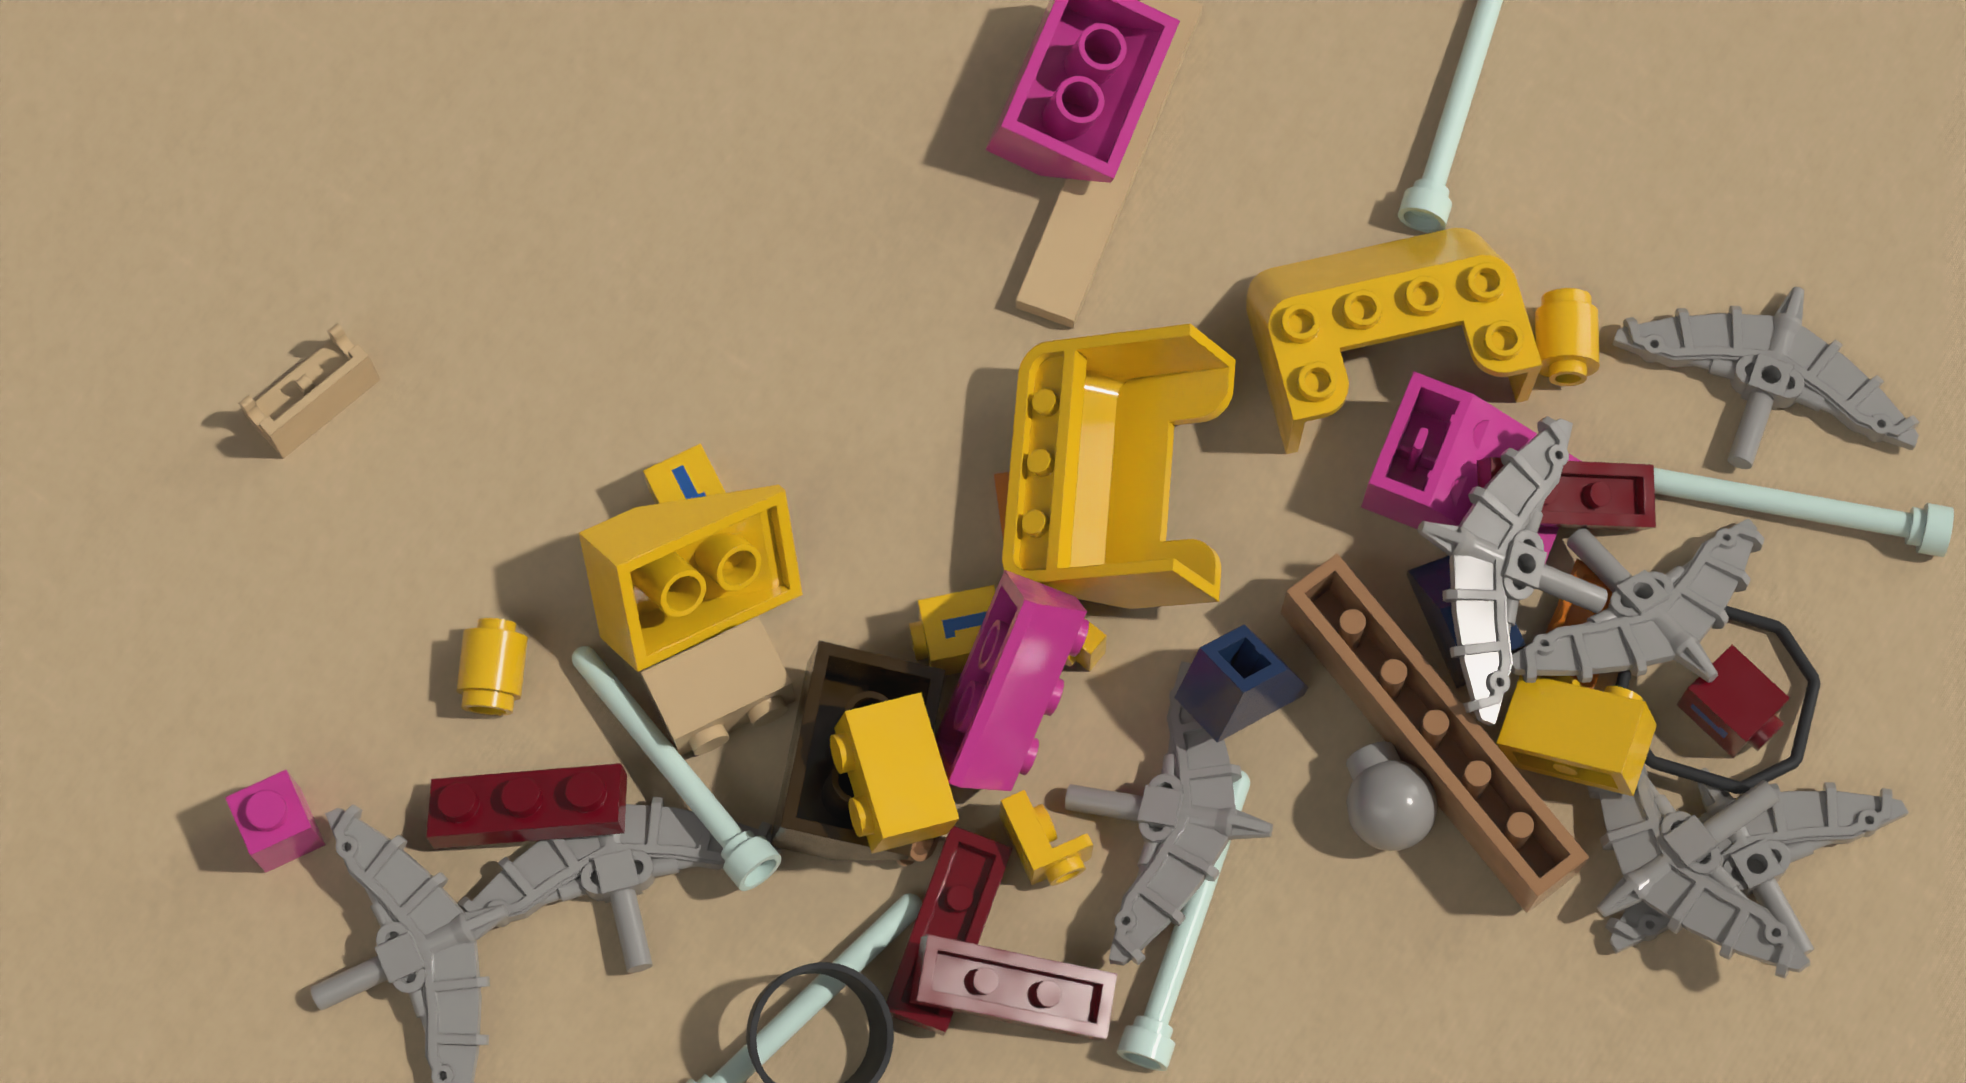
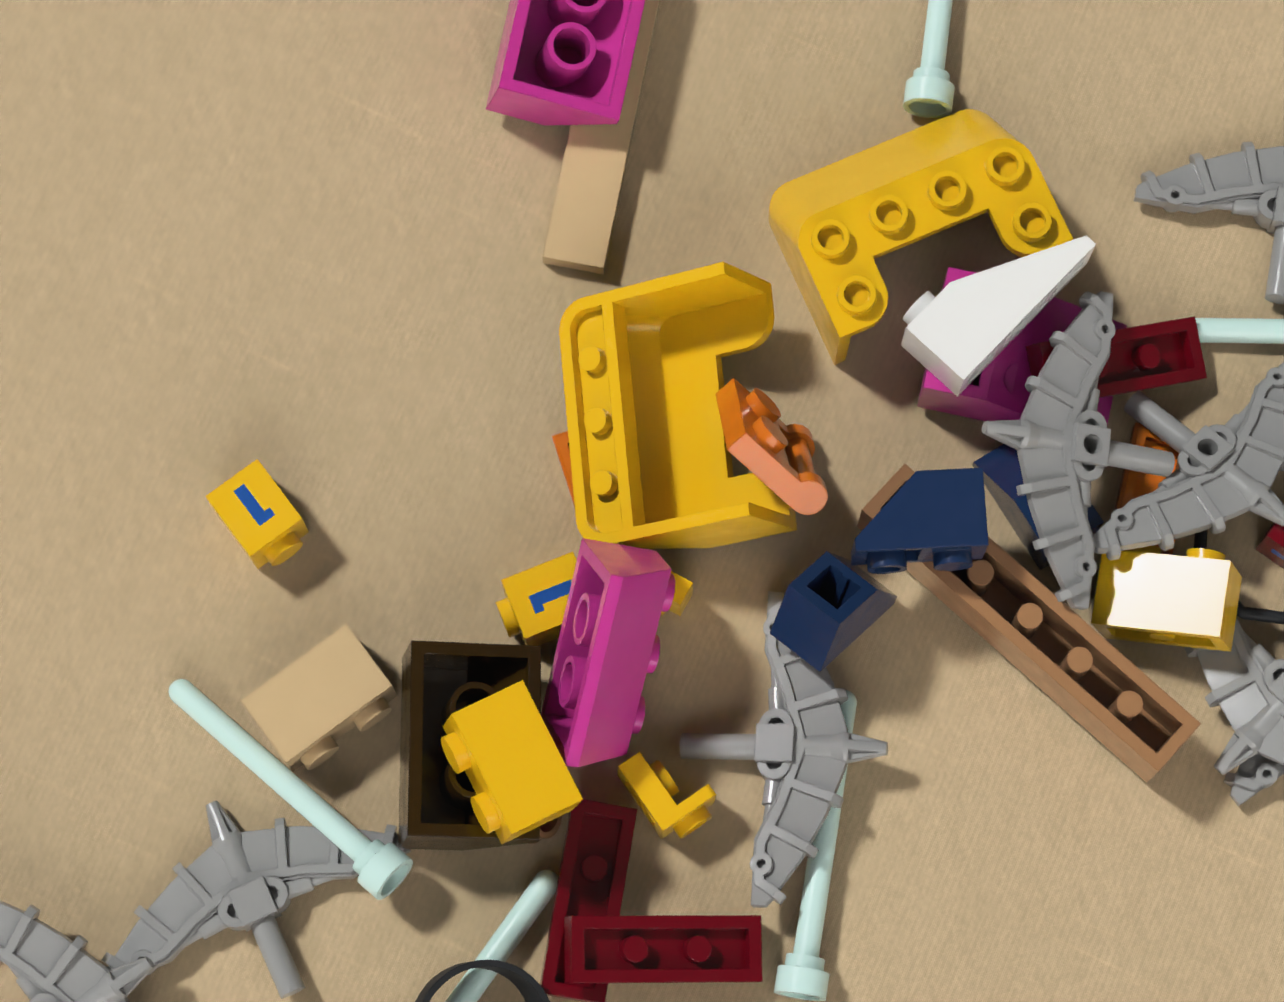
camera: 10 degrees left, 5 degrees up
(491, 667) = (91, 717): yellow brick -> none
(527, 806) = (152, 851): dark red plate -> none
(689, 570) = (269, 590): yellow slope -> none
(1205, 517) = (771, 449): none -> orange plate
(1347, 609) = (930, 519): none -> dark blue slope
(1389, 799) = (995, 695): light grey piece -> none
(1443, 416) = (985, 311): none -> white slope
(1567, 336) = (1090, 199): yellow brick -> none

